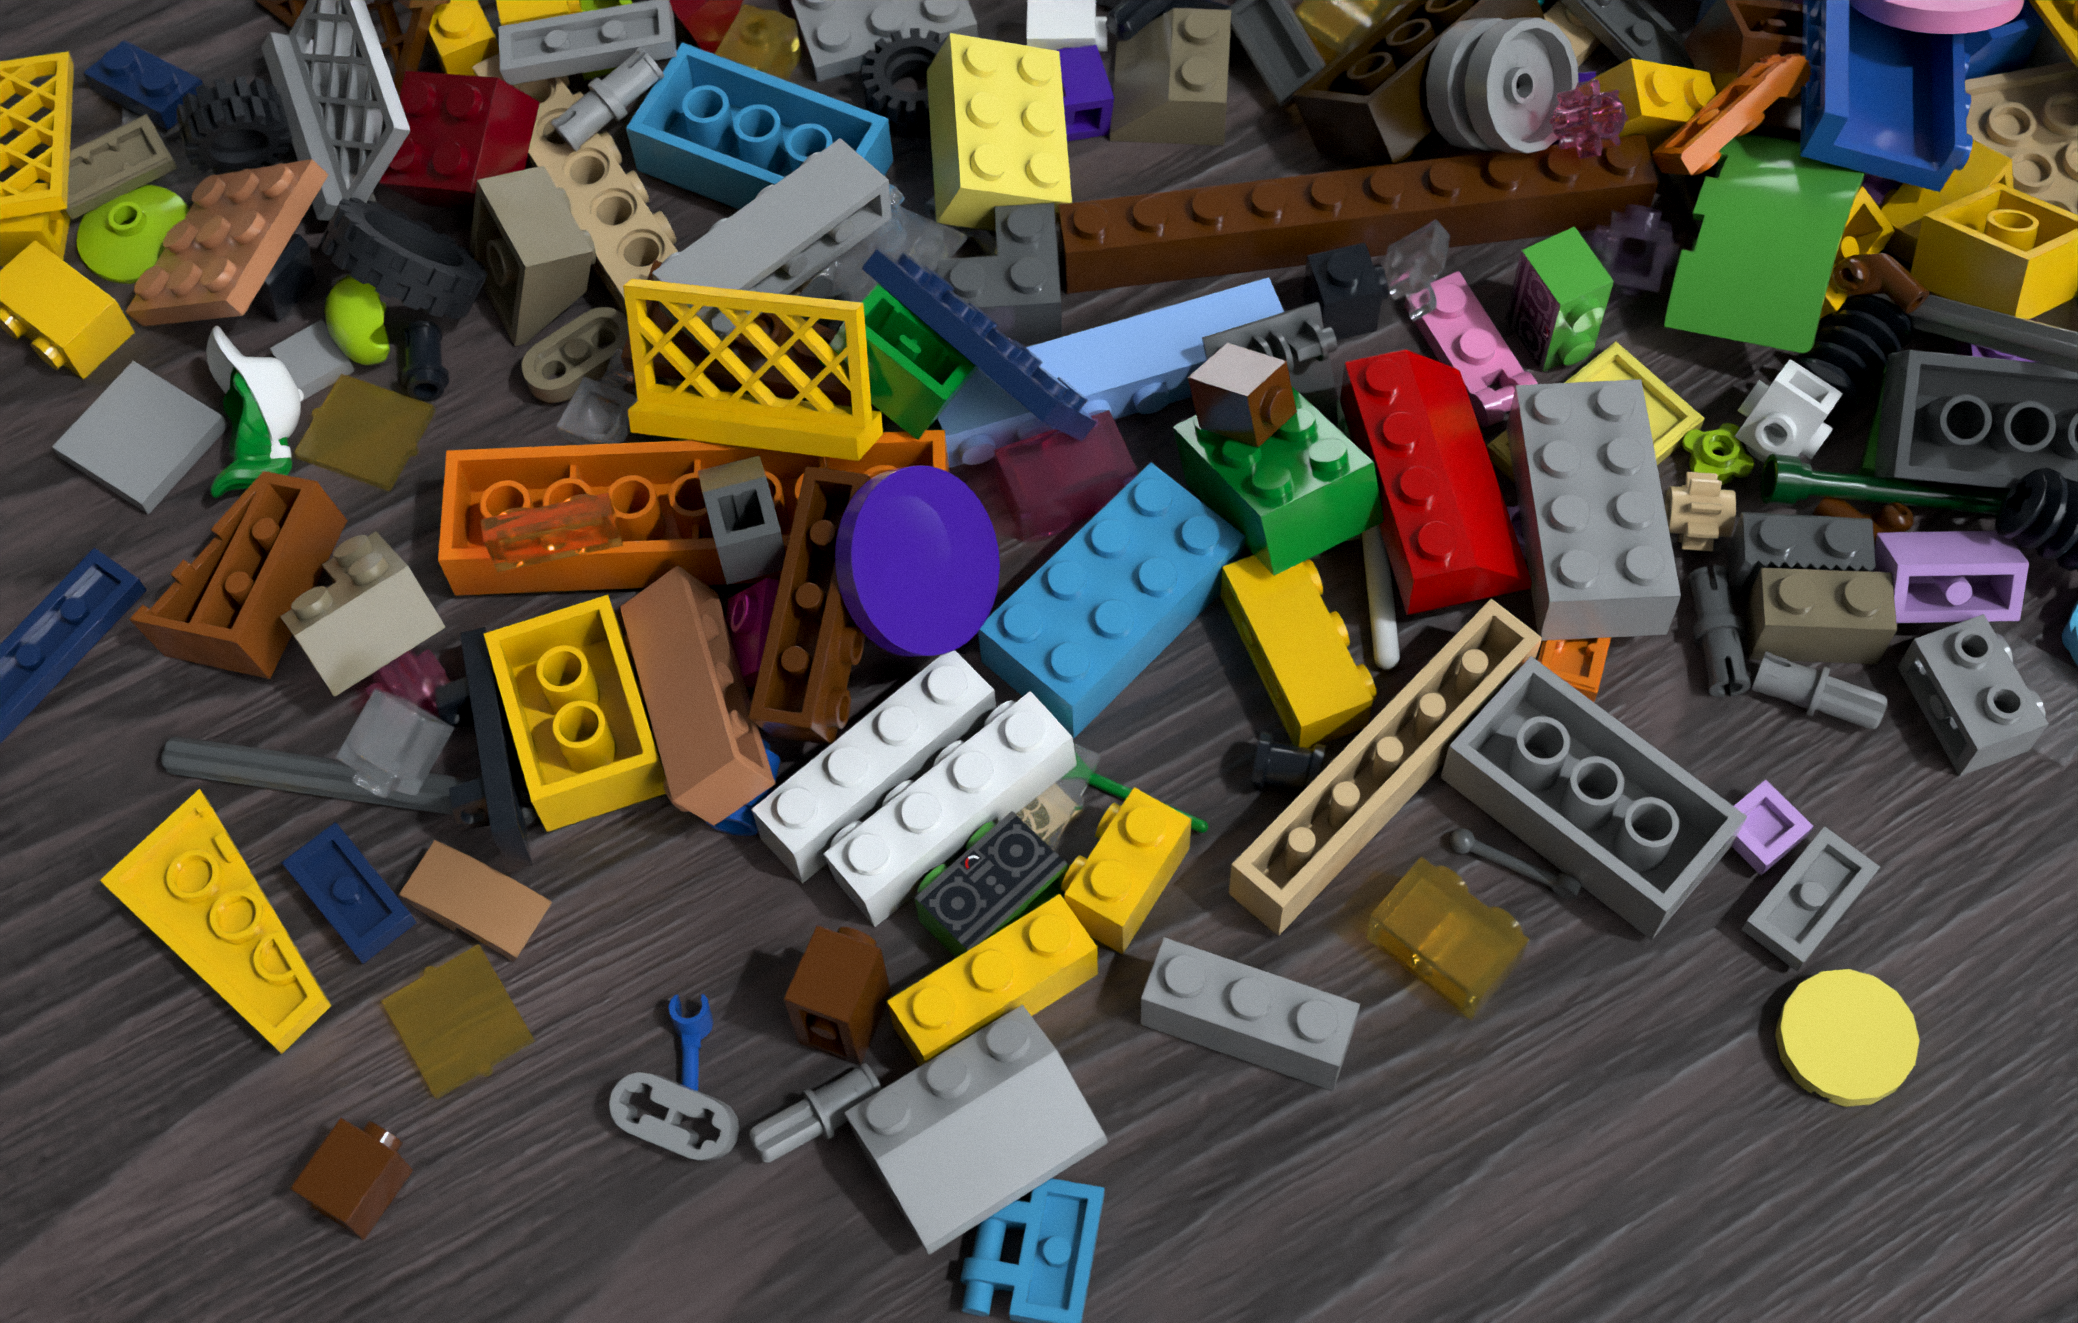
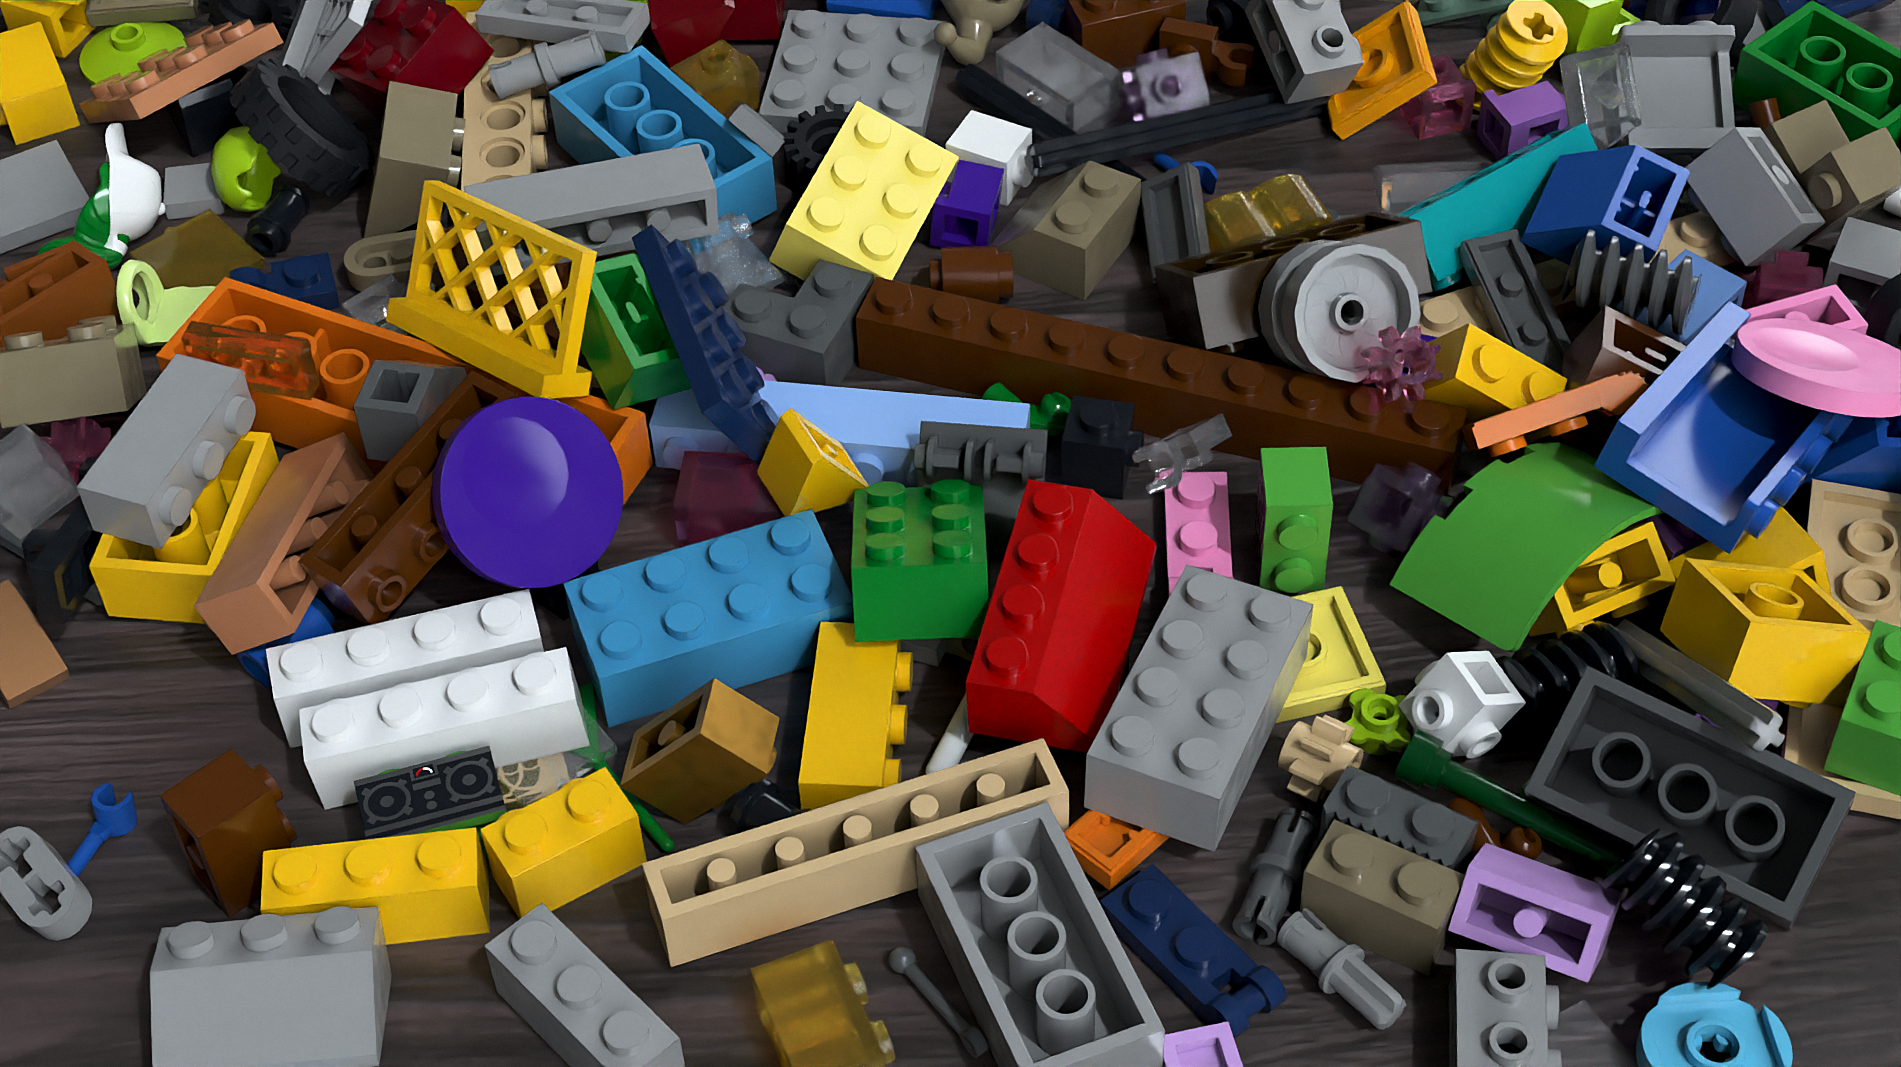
camera: 25 degrees right, 15 degrees down
(391, 498) = (159, 309): none -> yellowish green piece
(485, 420) = (300, 278): none -> dark blue plate
(542, 657) = (167, 451): none -> light grey brick
(815, 1115) = (135, 933): light grey axle -> none
(838, 87) = (755, 127): none -> tile
(1123, 162) = (974, 272): none -> reddish brown brick
(1128, 430) = (807, 467): none -> yellow slope
(1204, 736) = (701, 752): none -> pearl gold brick
(1242, 394) = (911, 469): reddish brown brick -> none
(1276, 267) = (1048, 415): none -> green arm
(1695, 729) = (1190, 951): none -> dark blue plate
(1879, 275) = (1618, 605): reddish brown arm -> none

